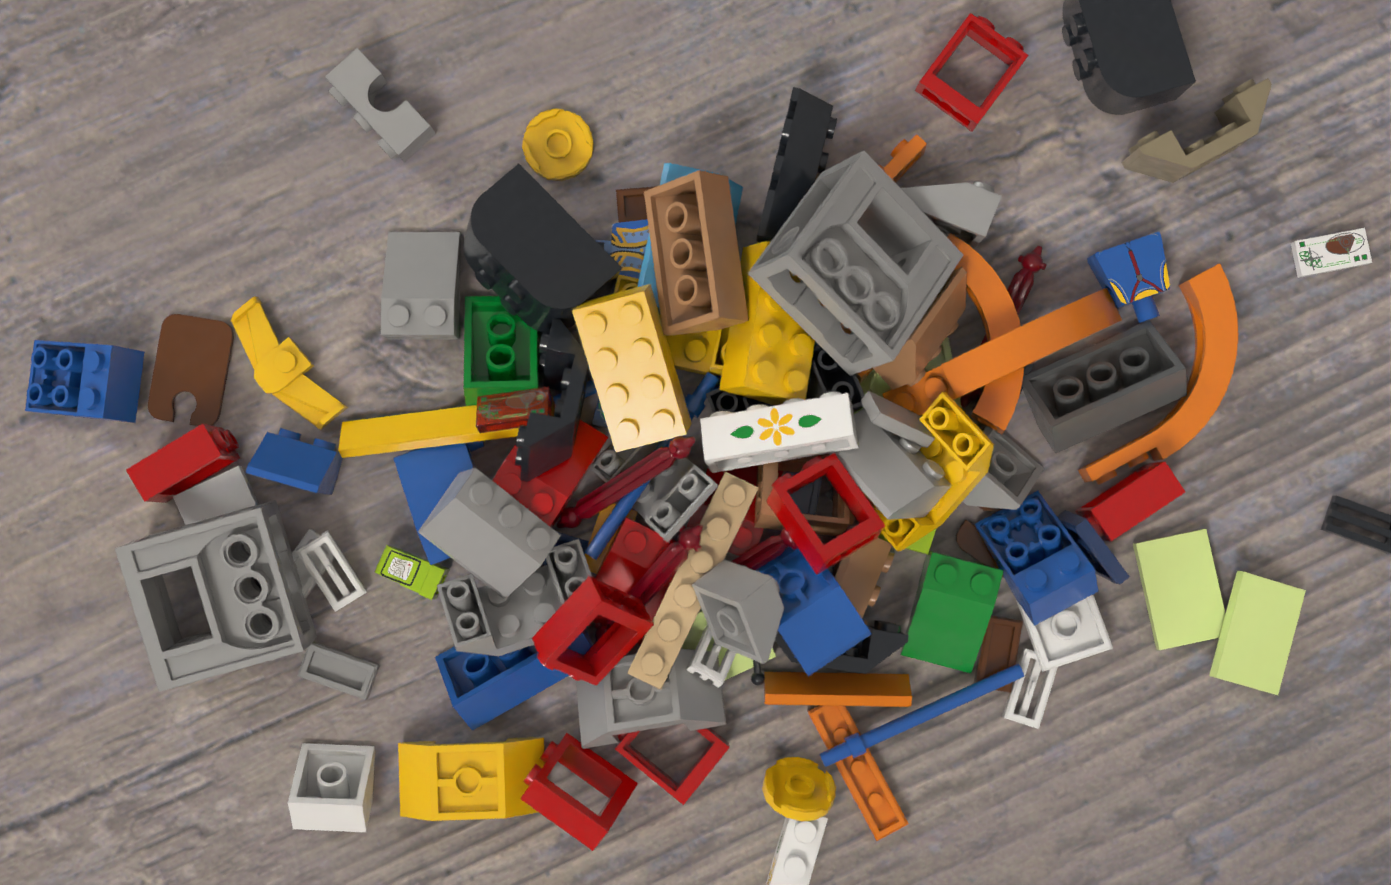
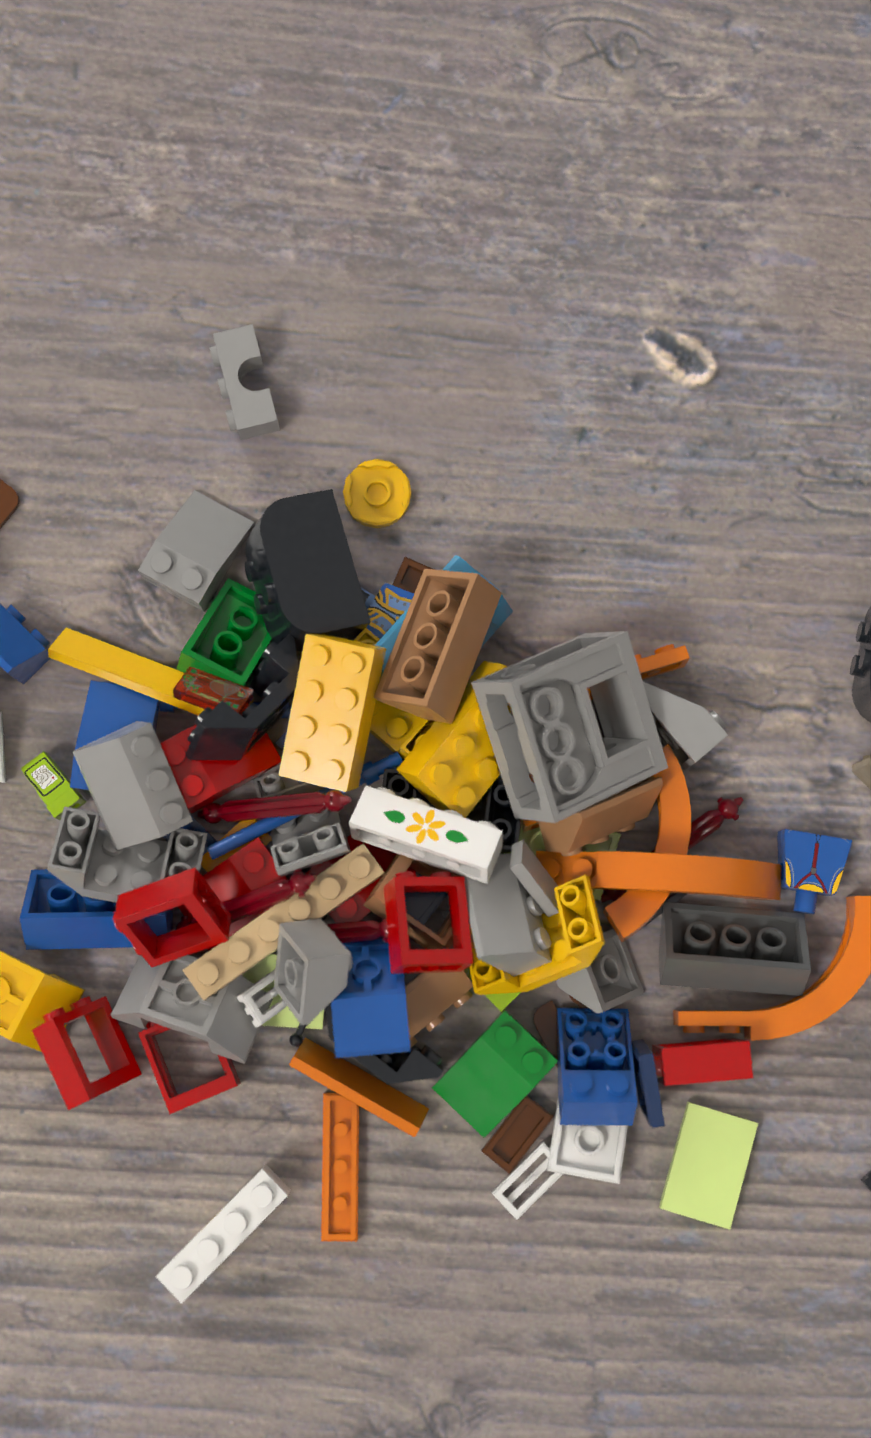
camera: 25 degrees right, 5 degrees down
(282, 367) = (43, 554): yellow plate -> none
(797, 159) = (574, 612): black wedge -> none
(799, 789) = (277, 1156): yellow tile -> none
(857, 744) = (349, 1145): blue bar -> none
(950, 100) = (730, 633): red window -> none
(1257, 632) = (755, 1241): yellowish green tile -> none

